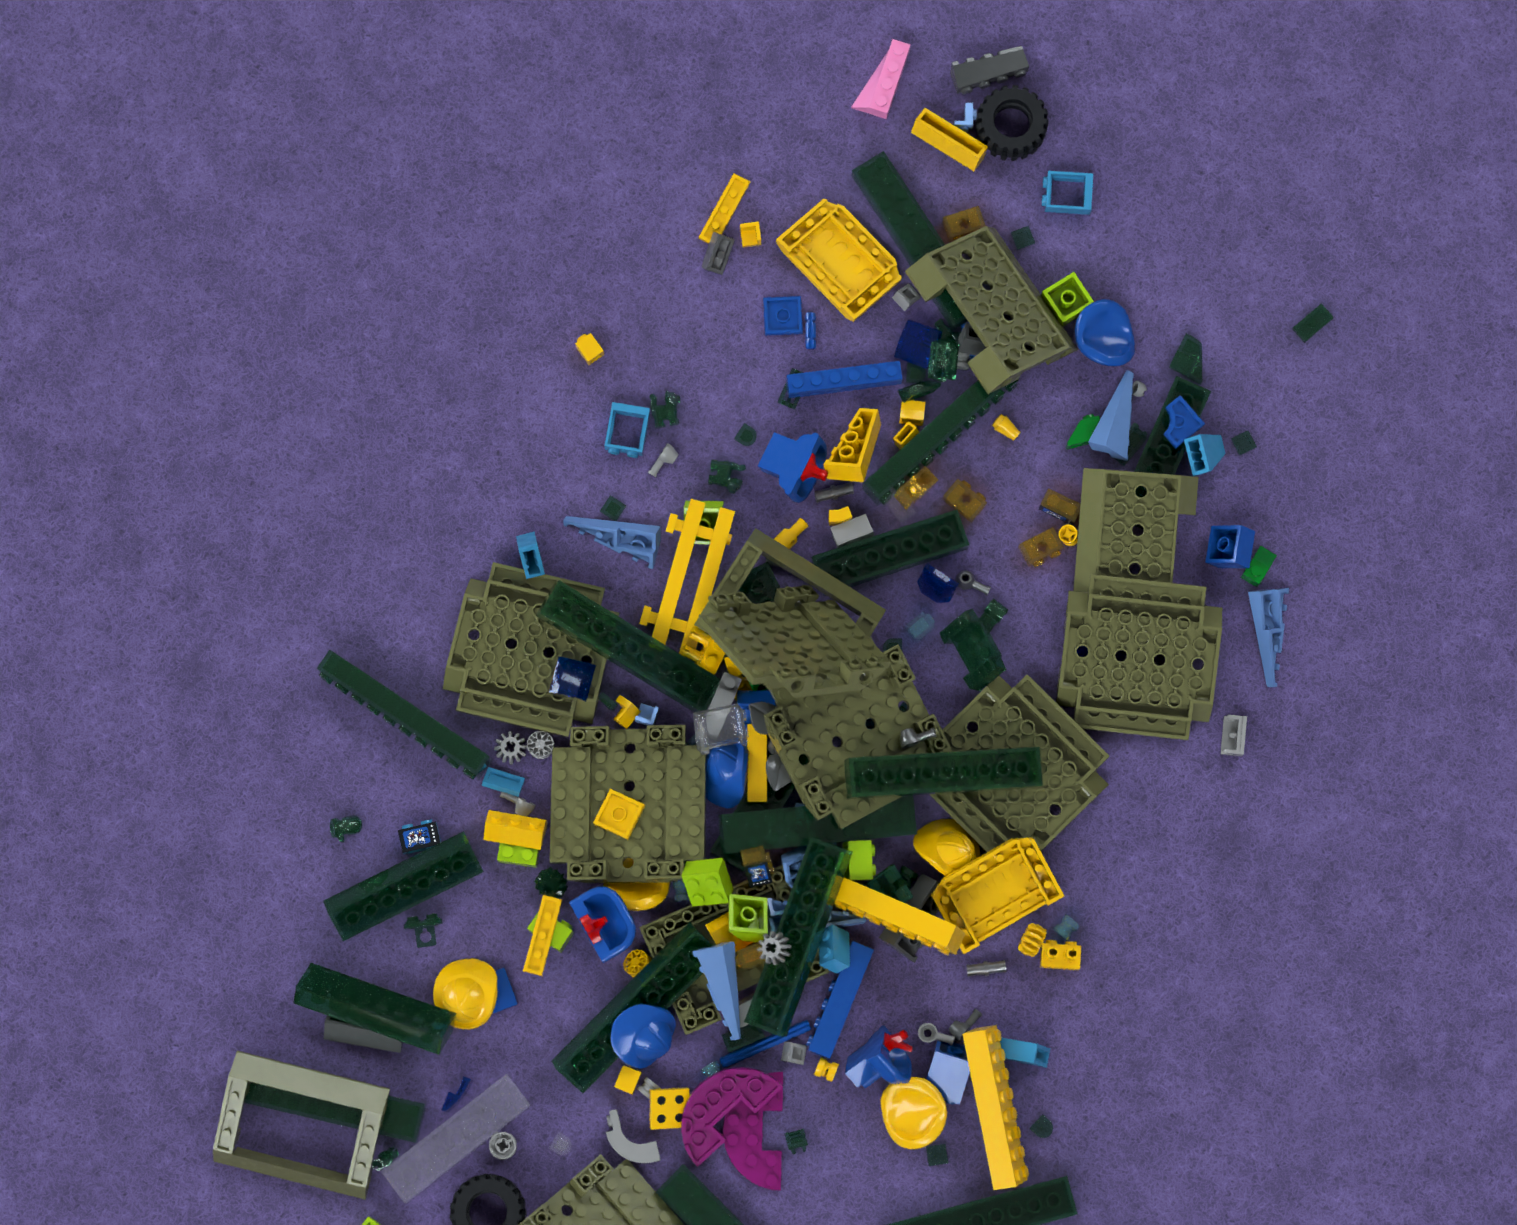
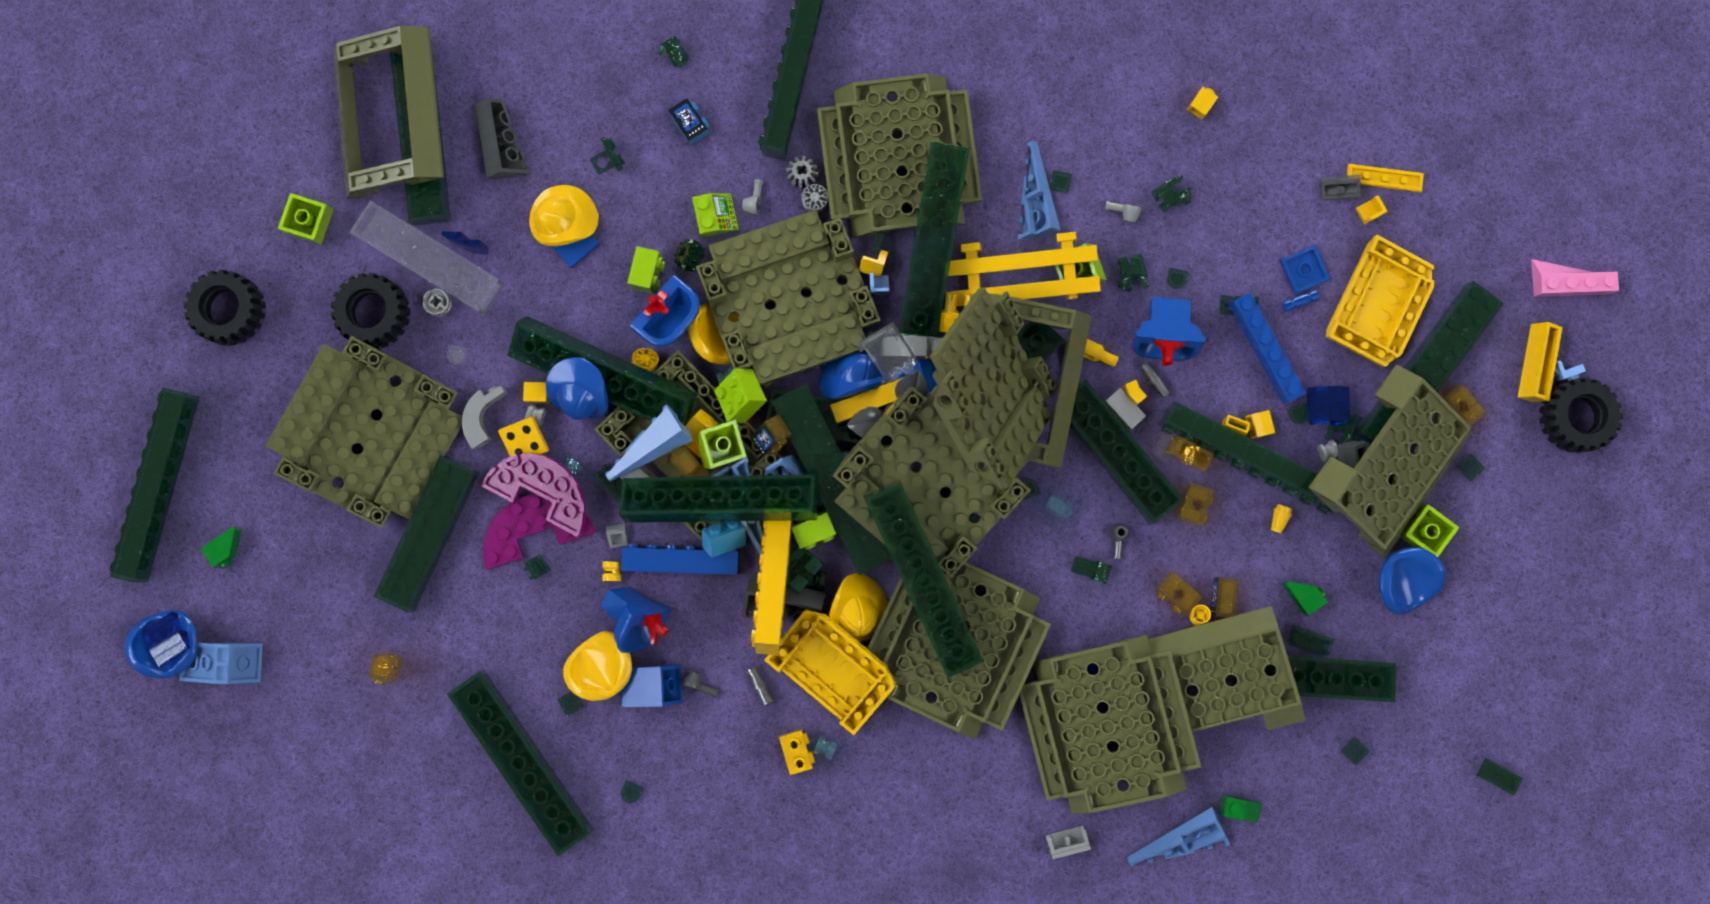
camera: 70 degrees right, 5 degrees up
(374, 1008) = (515, 138): clear green brick -> none
(385, 1158) = (384, 200): pin -> none
(403, 886) = (637, 122): clear green brick -> none
(503, 781) = (768, 177): dark azure tile -> none
(514, 829) = (726, 202): yellow slope -> none
(530, 555) = (986, 119): dark azure slope -> none
(542, 935) = (634, 262): yellow tile -> none
(572, 678) = (884, 201): clear blue slope -> none
(619, 814) = (775, 291): yellow tile -> none
(628, 410) = (1158, 161): dark azure window -> none
(764, 1044) = (636, 528): blue axle -> none
(767, 945) = (698, 472): light grey gear -> none
(853, 454) = (1205, 382): yellow wedge -> none
(906, 297) = (1369, 378): light grey slope -> none
(909, 738) = (945, 534): flat silver bar -> none
(918, 390) = (1283, 422): clear green slope -> none
(935, 1035) = (679, 660): light grey bar -> none
(936, 585) = (1103, 507): clear blue slope -> none
(943, 360) = (1323, 434): clear green hinge -> none
(975, 648) = (1056, 566): clear green plate -> none
(988, 69) = (1623, 374): dark grey wedge -> none
(995, 1107) = (629, 742): yellow brick -> none
(1025, 1052) = (692, 746): dark azure slope -> none
(1032, 939) = (801, 719): yellow gear -> none
(1086, 178) = (1549, 489): dark azure window -> none
(1113, 428) = (1320, 621): medium blue wedge -> none
(1141, 387) = (1367, 630): light grey hinge -> none
(1183, 422) = (1354, 685): blue tile -> none
(1189, 359) = (1416, 668): clear green slope -> none
(1204, 452) = (1331, 717): dark azure slope -> none
(1230, 546) = (1249, 775): blue brick -> none

